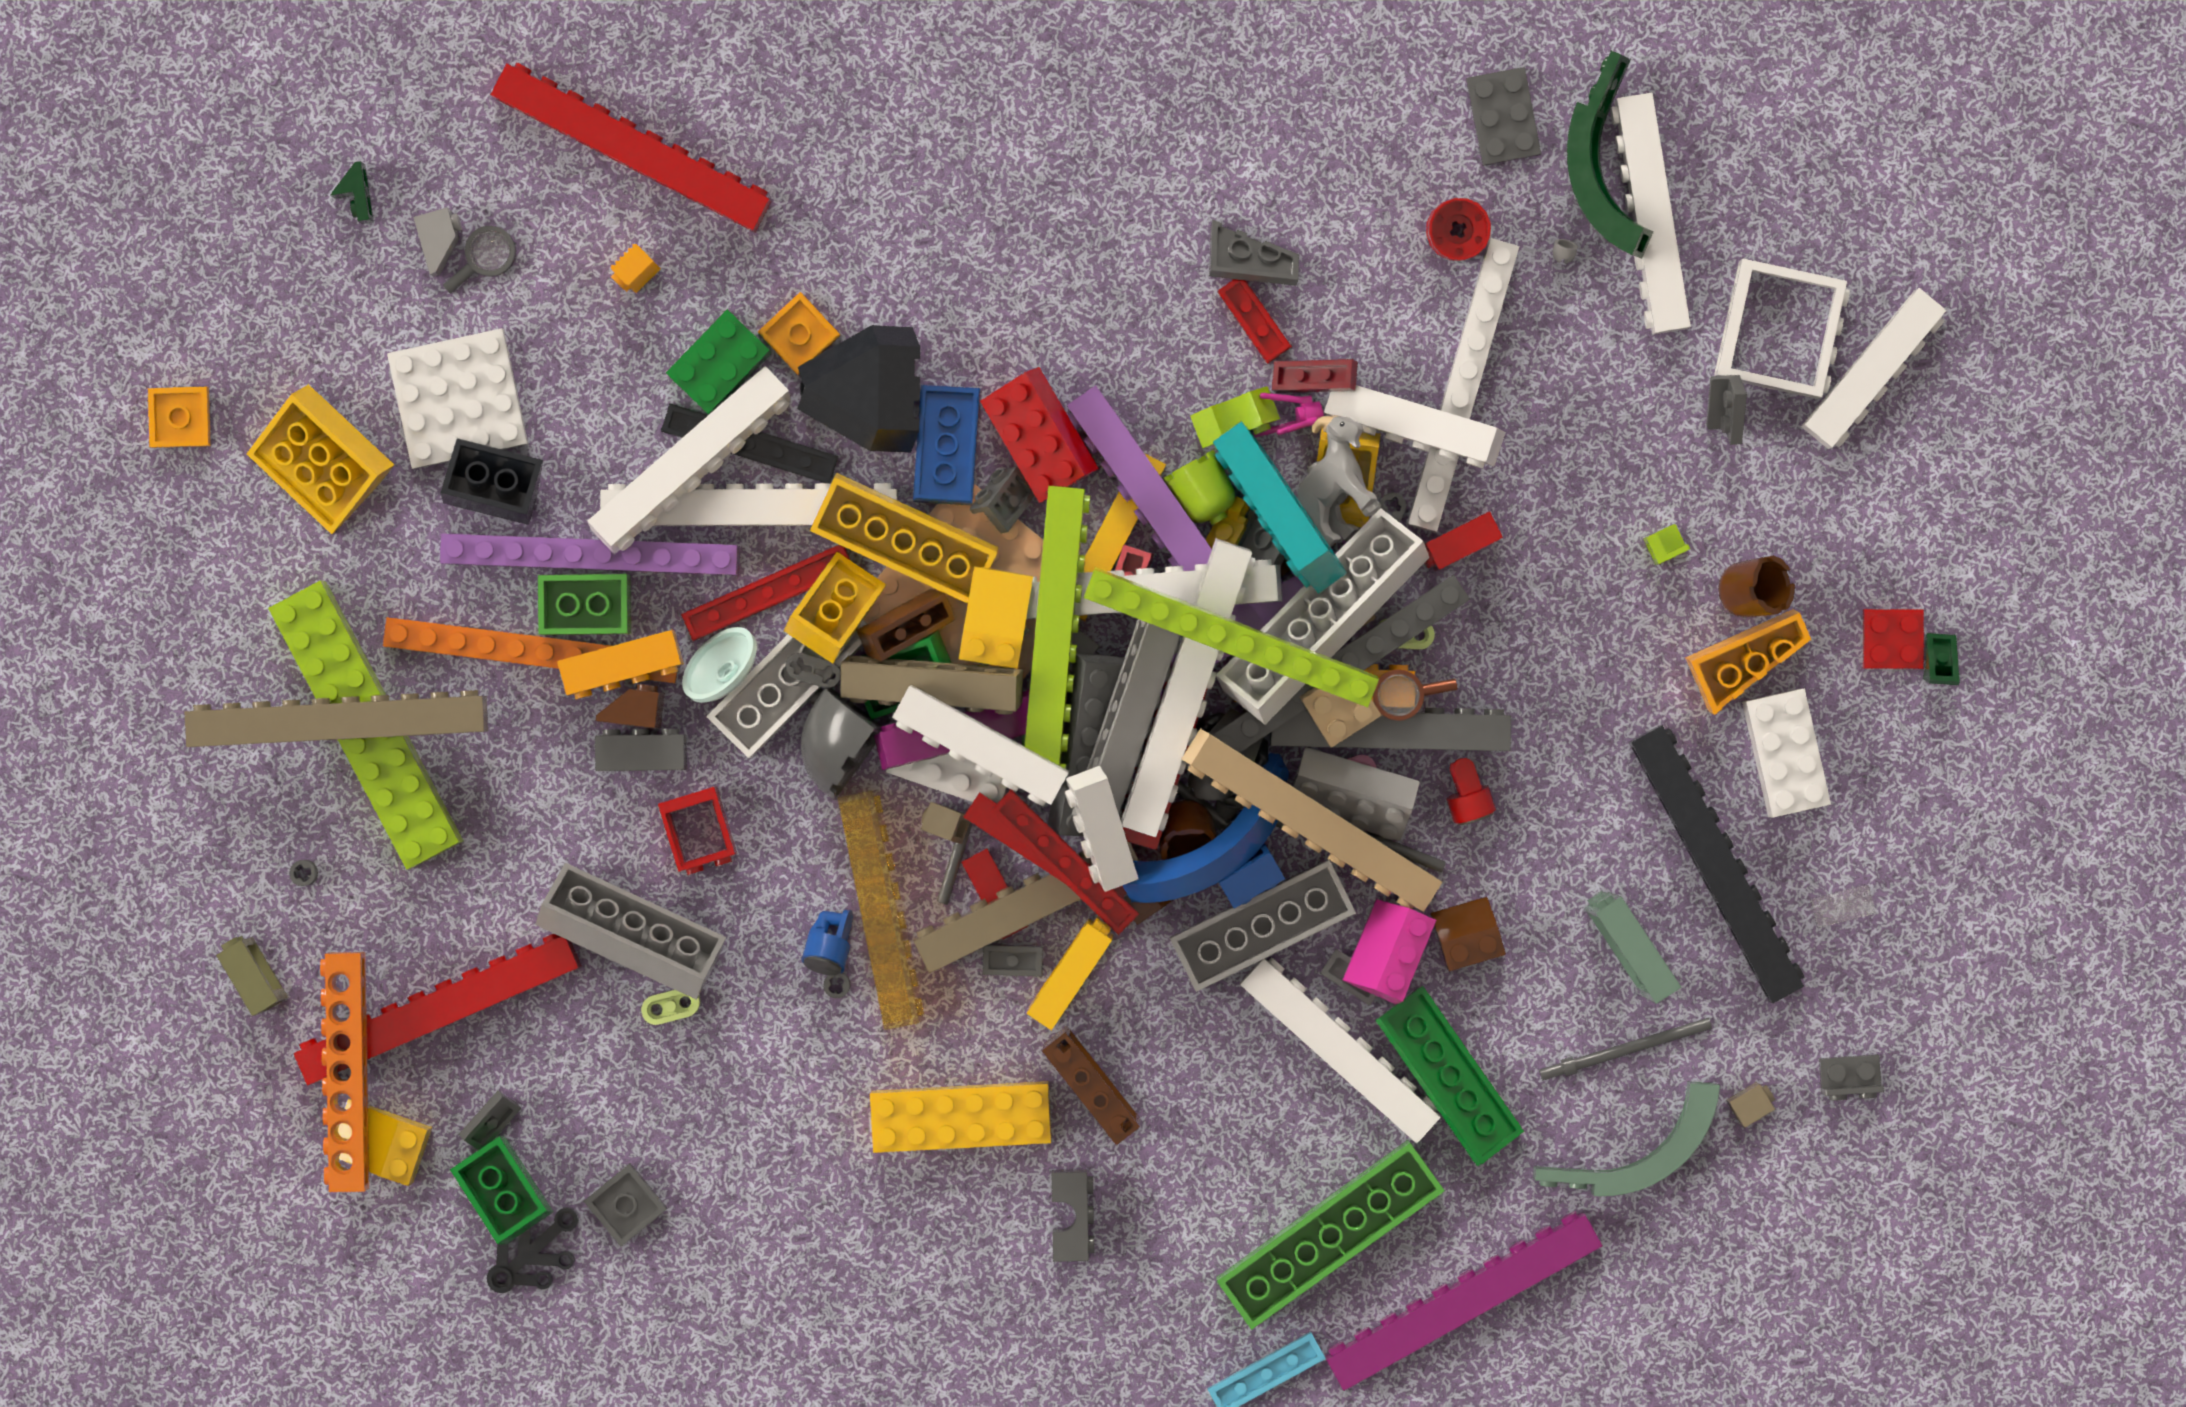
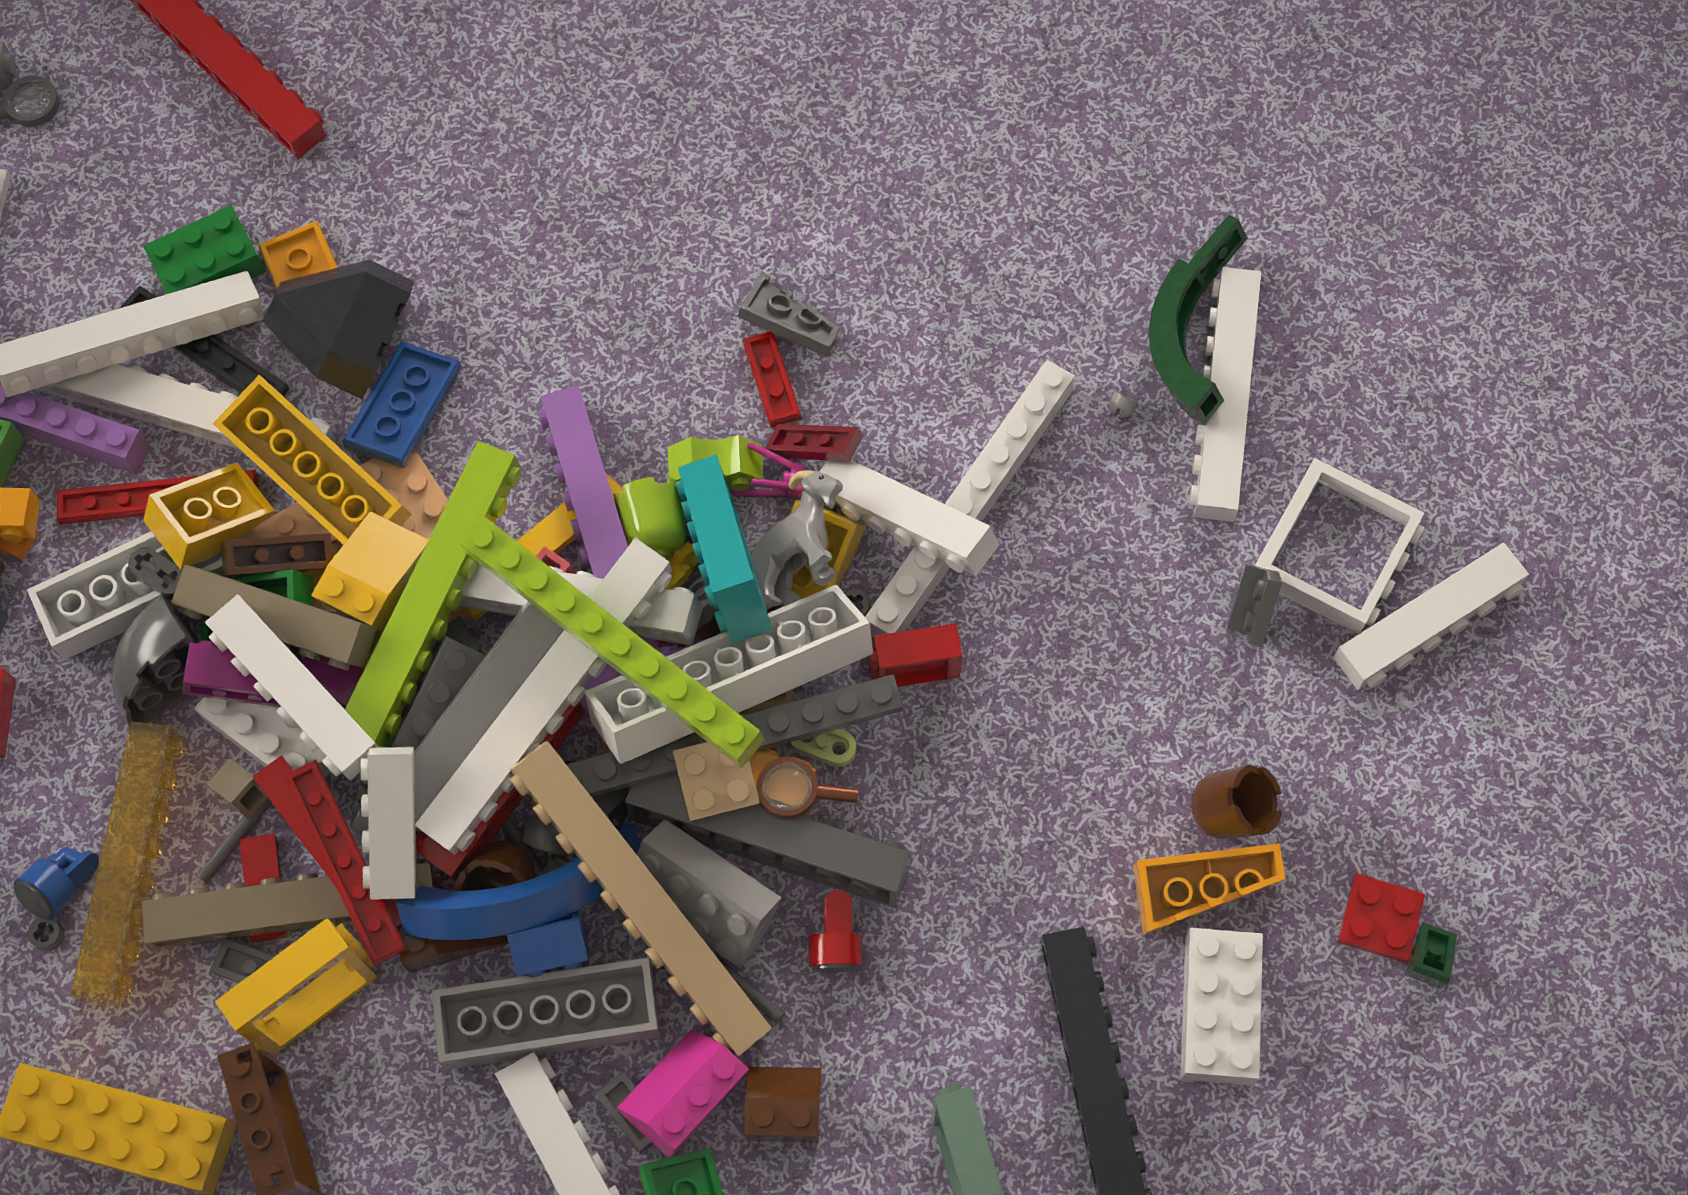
camera: 20 degrees right, 20 degrees down
(634, 269) = (157, 145): light orange brick -> none
(720, 665) = (68, 548): light aqua dish -> none
(1004, 498) = (437, 471): dark grey bracket -> none
(1038, 433) = (501, 405): red brick -> none
(1475, 234) = (1018, 327): red wheel -> none
(1503, 116) = (1097, 261): dark grey plate -> none
(1665, 544) = (1145, 735): lime panel -> none

